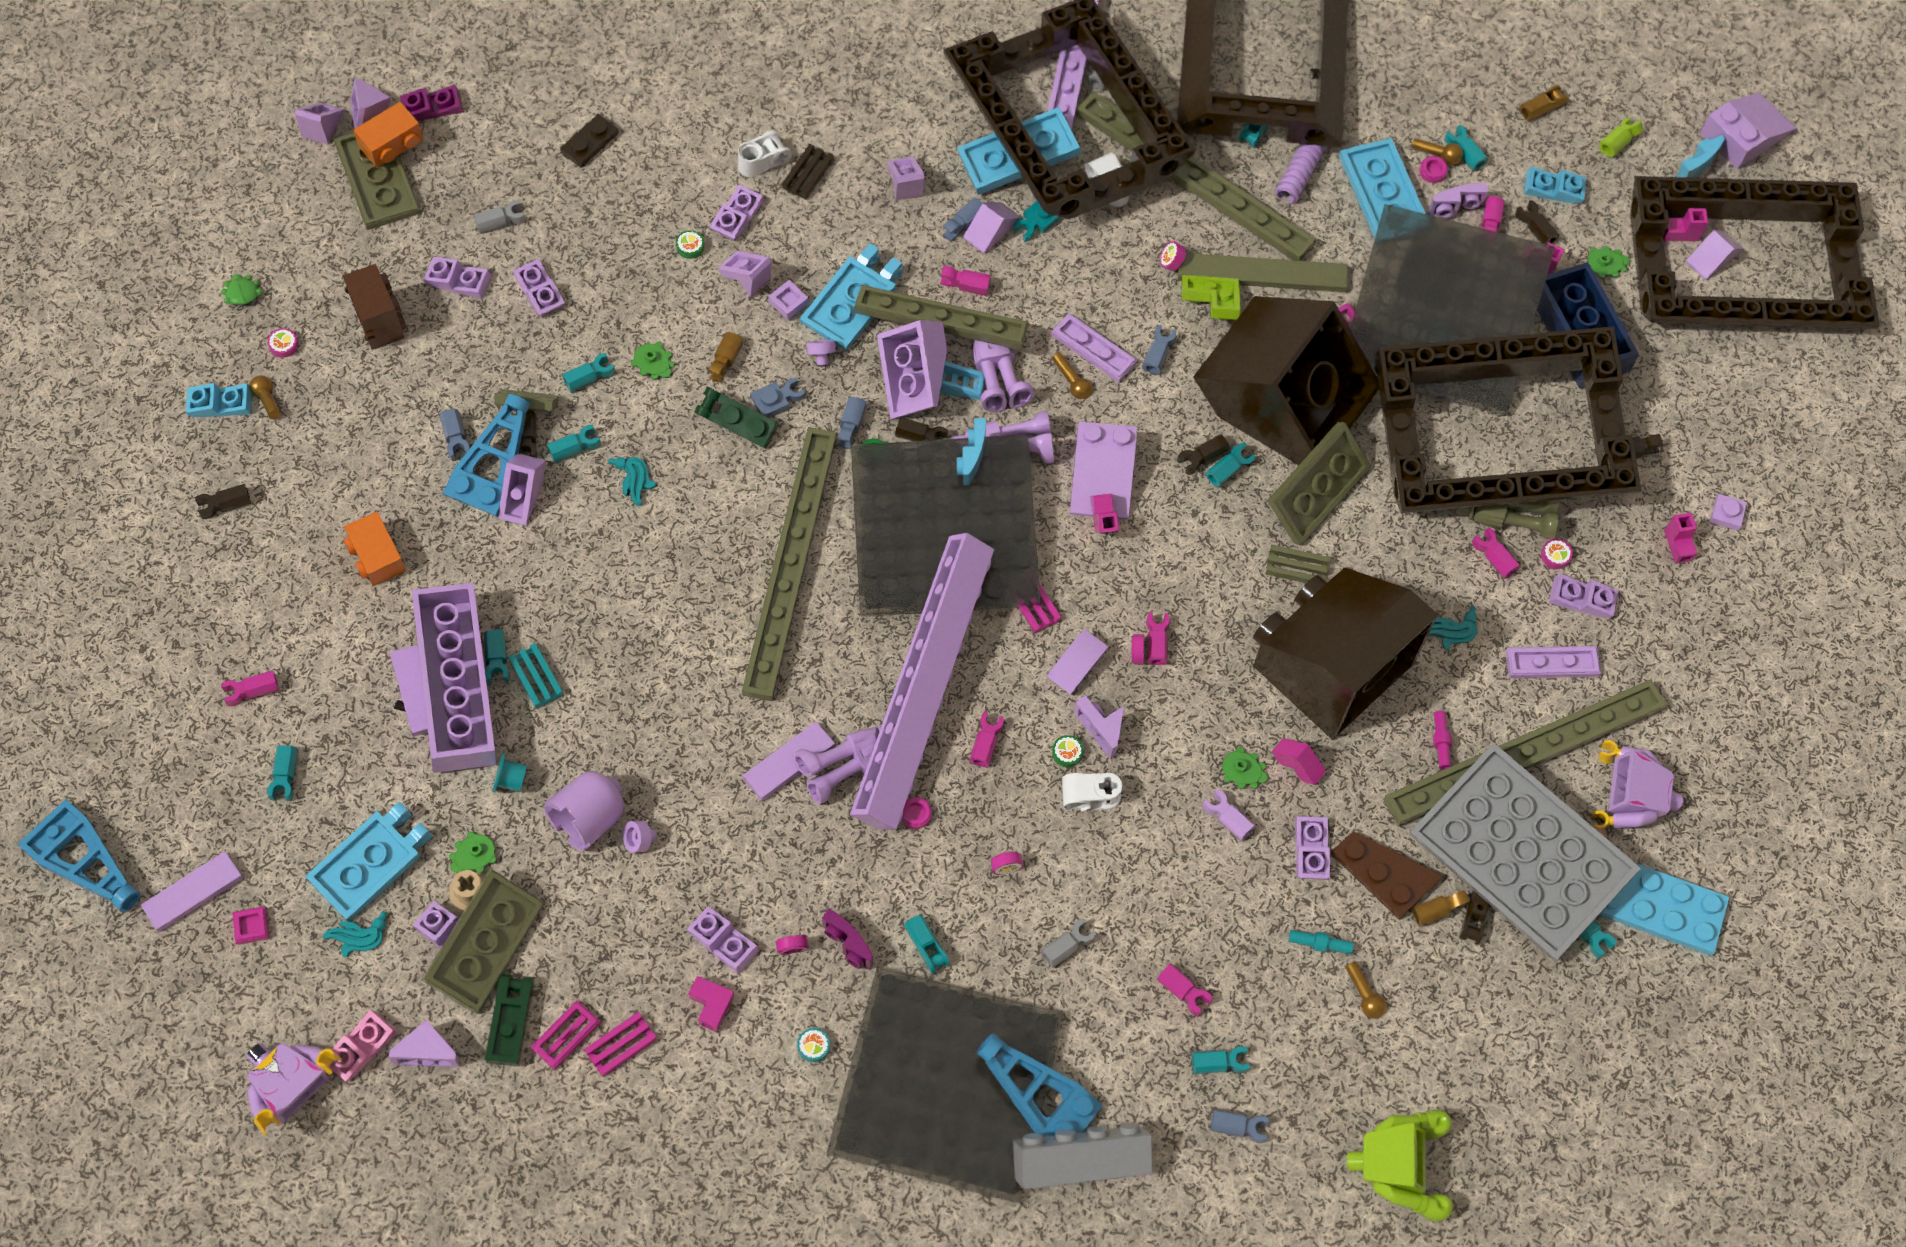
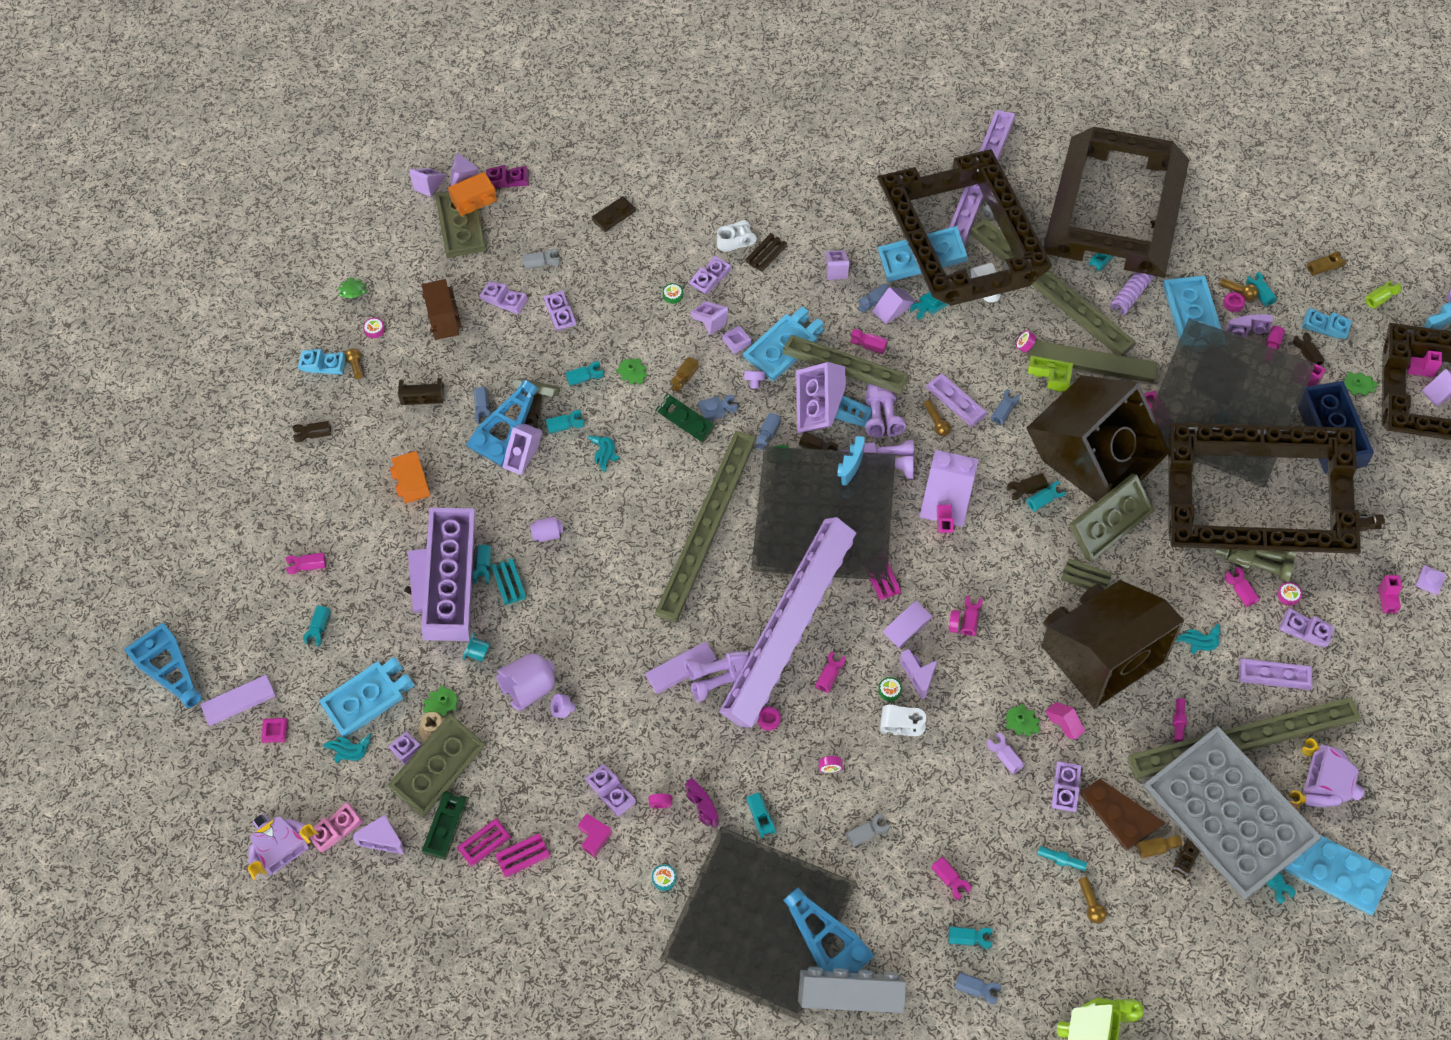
camera: 15 degrees right, 5 degrees down
(367, 428) = (421, 393): none -> dark brown hinge
(575, 597) = (546, 529): none -> lavender brick

